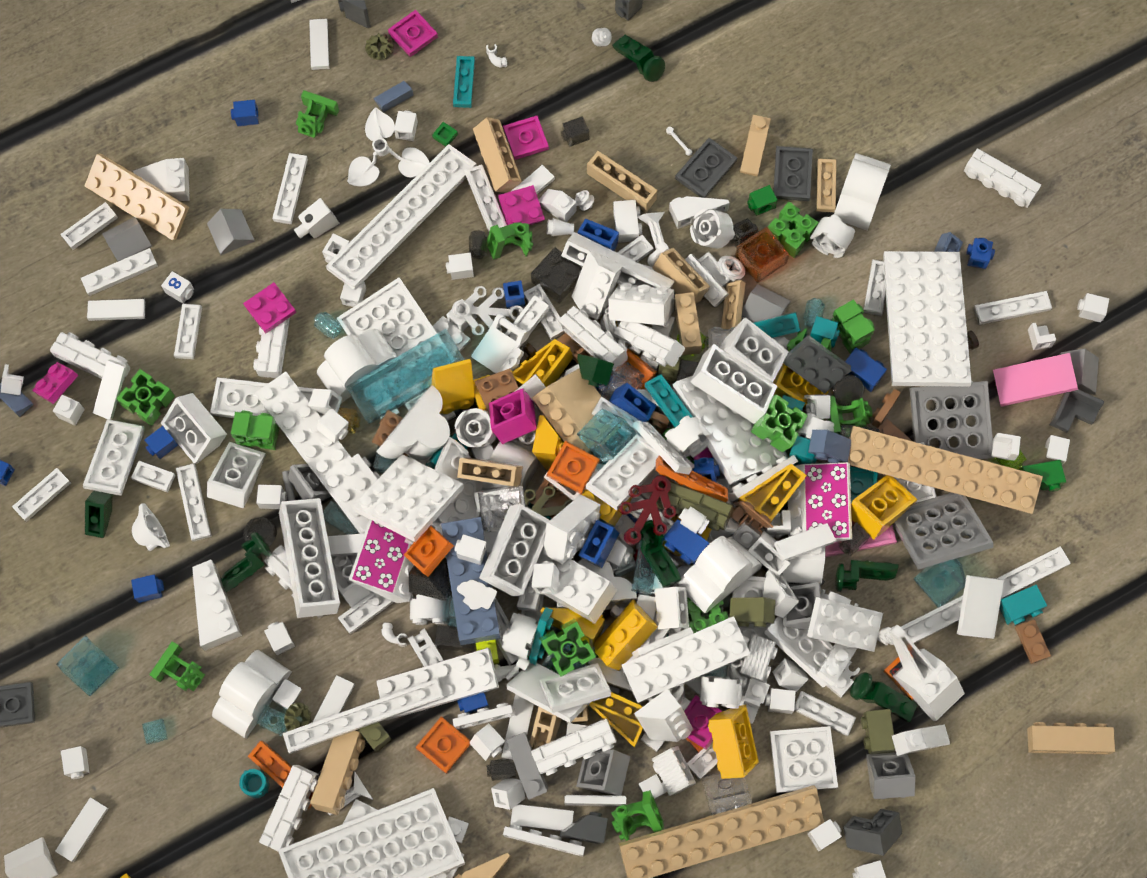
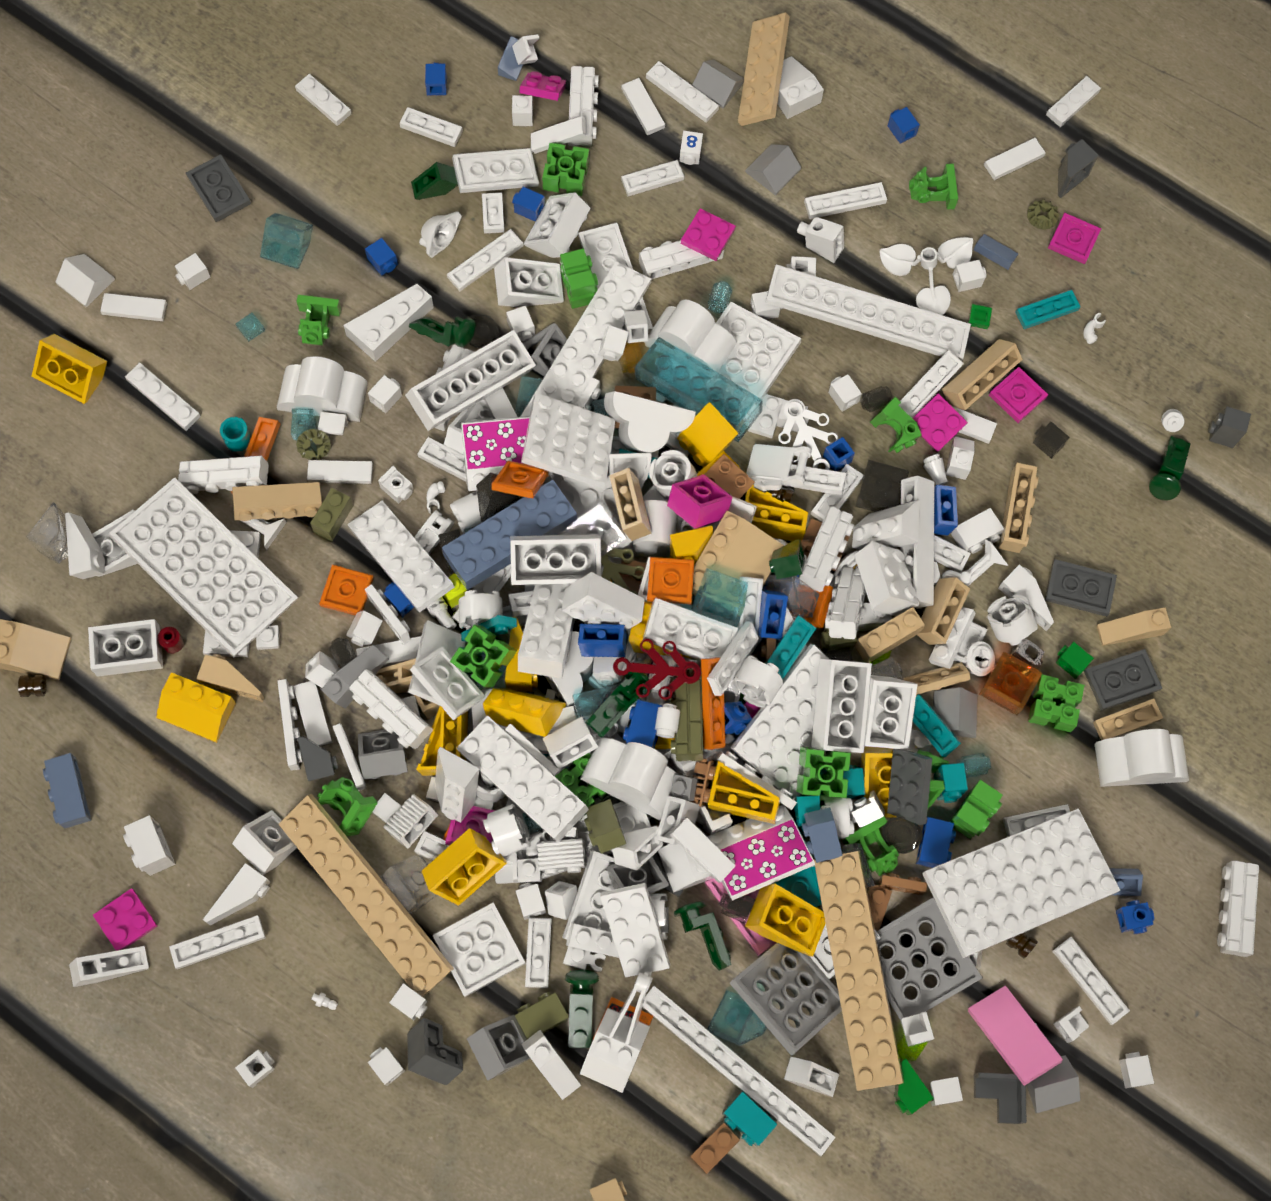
camera: 60 degrees right, 0 degrees up
(89, 226) = (714, 44): white plate -> none
(183, 836) = (162, 396): none -> white plate
(363, 716) = (337, 499): white tile -> none
(368, 669) = (399, 492): none -> white brick
(471, 549) = (535, 516): white brick -> none
(476, 594) = (494, 543): white sticker -> none
(521, 663) = (454, 624): white hand -> none
(545, 578) = (539, 599): white brick -> none
(584, 200) = (978, 480): white wheel -> none
(669, 130) = (1105, 534): white hinge -> none
(832, 236) = (1069, 748): white brick -> none
(980, 606) = (723, 1071): white tile -> none
(1006, 544) = (811, 1076): none -> white slope

